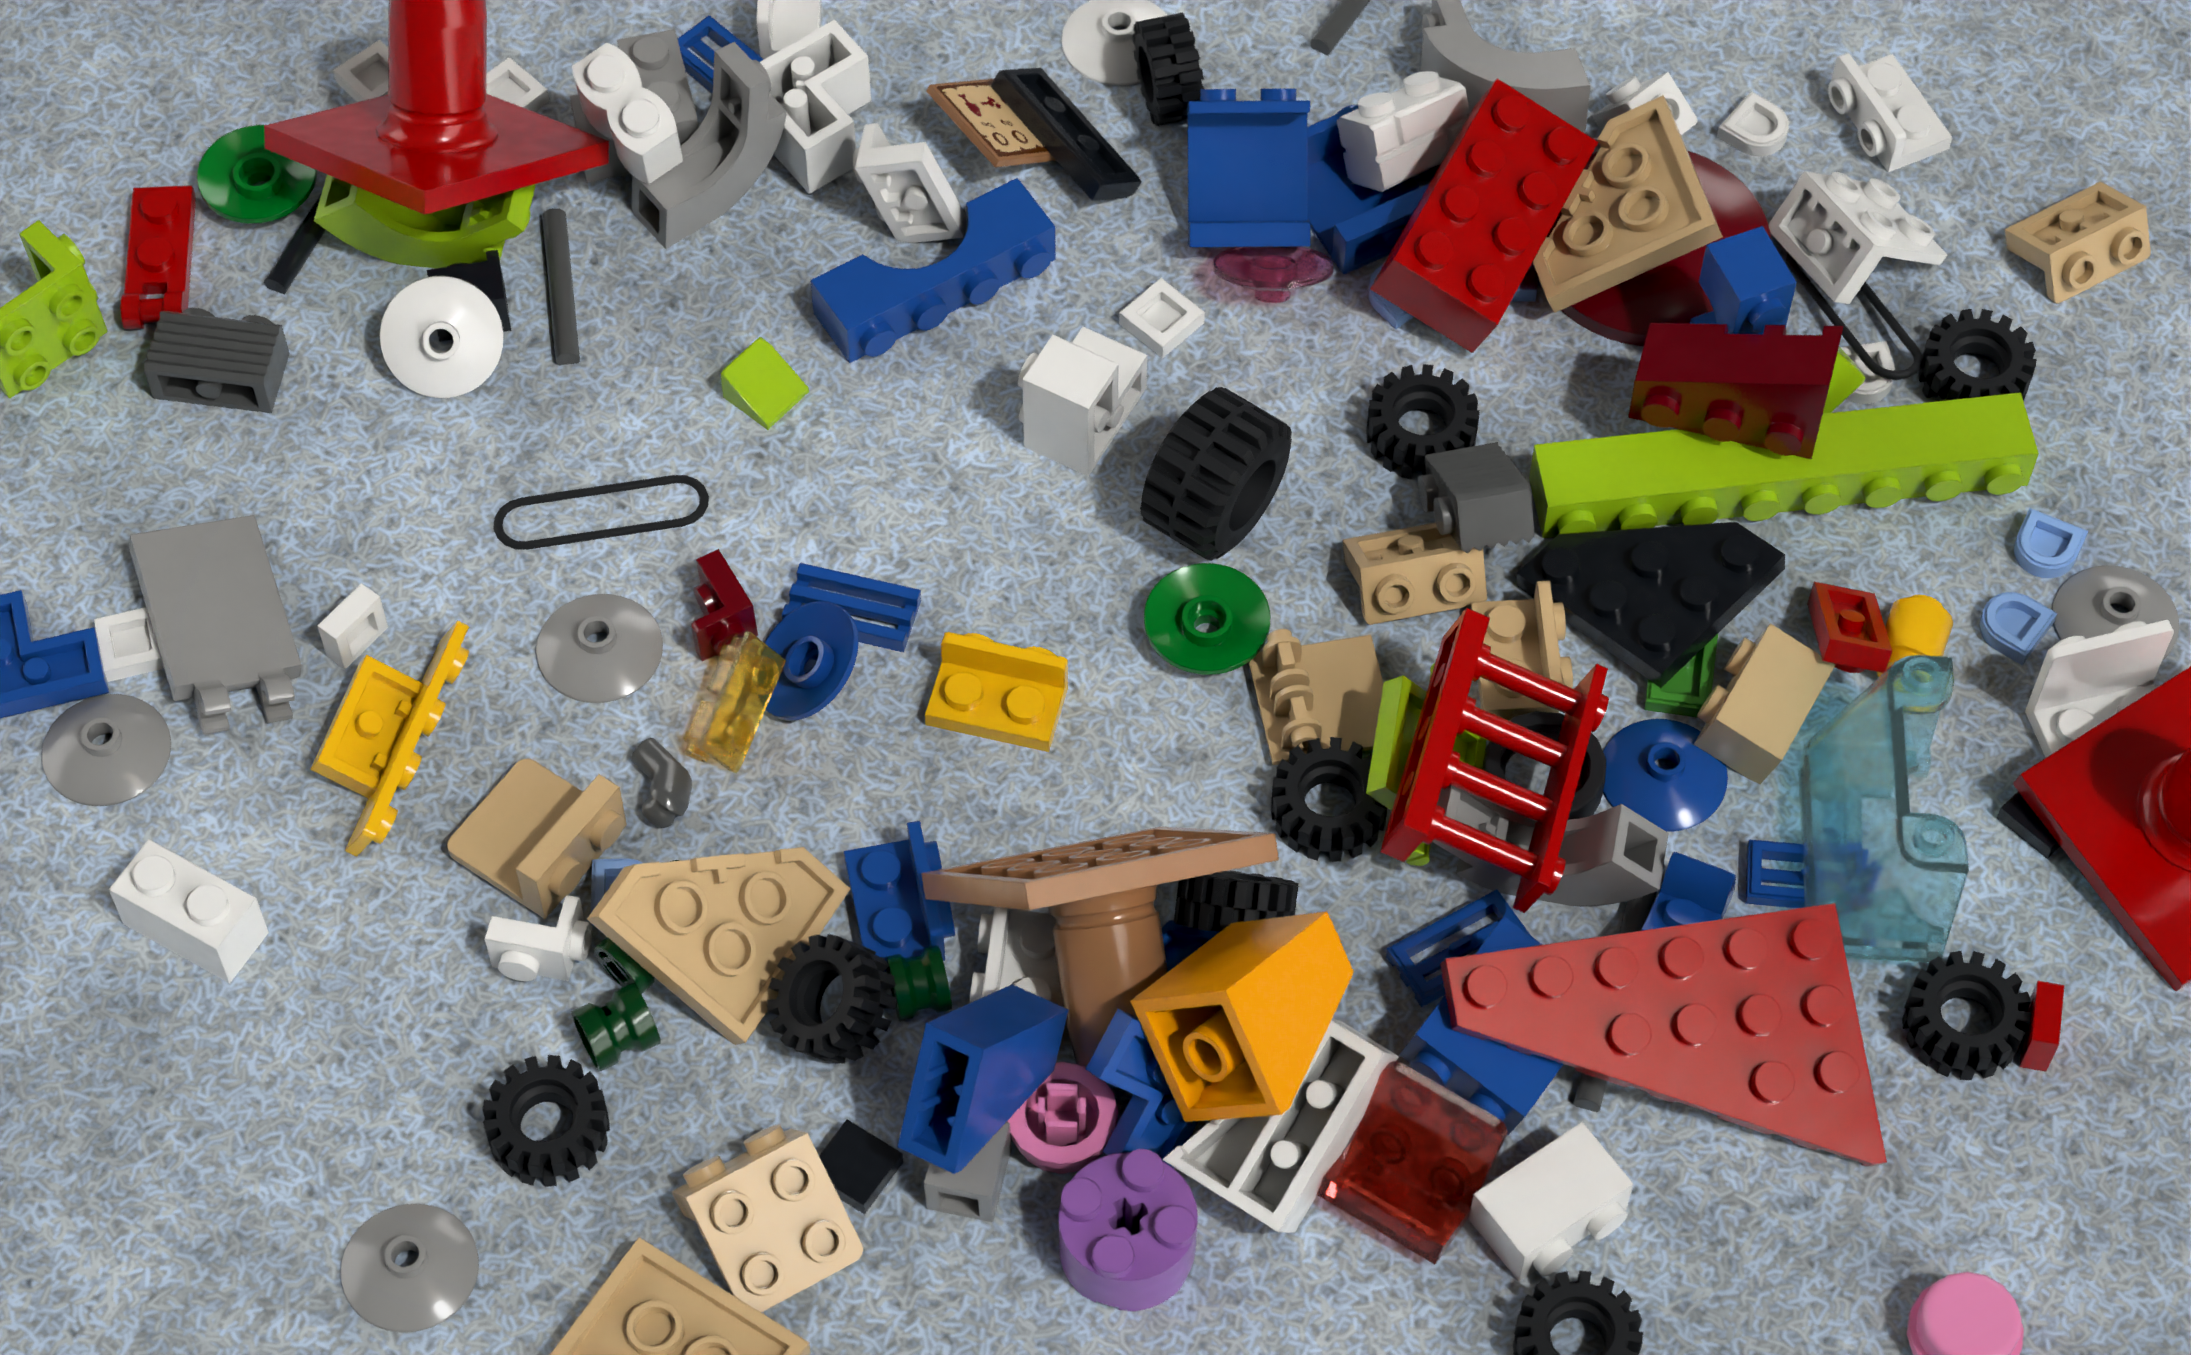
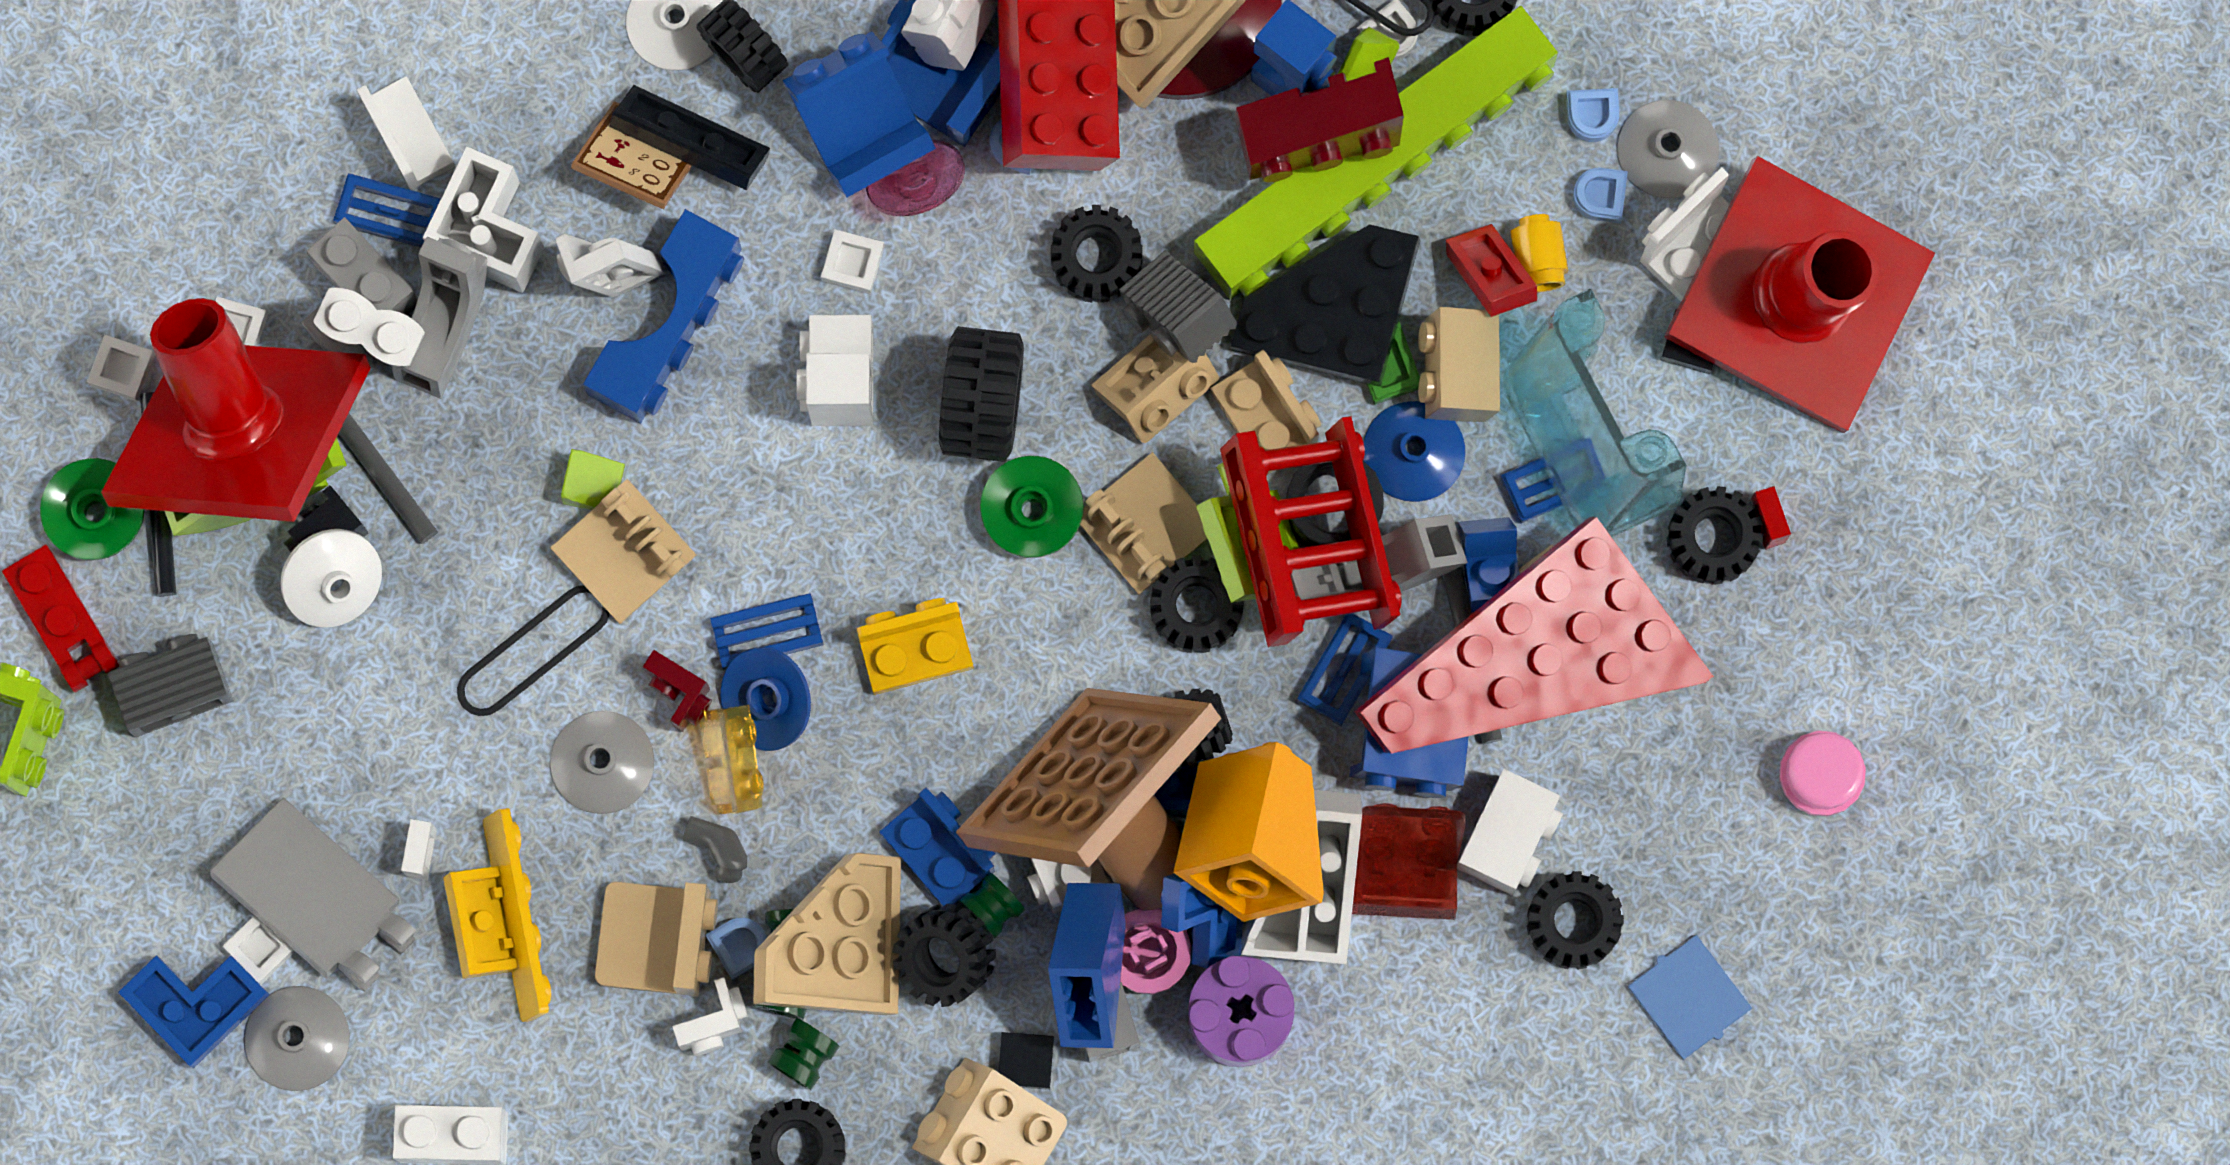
camera: 30 degrees left, 20 degrees up
(753, 459) = (623, 551): none -> tan hinge

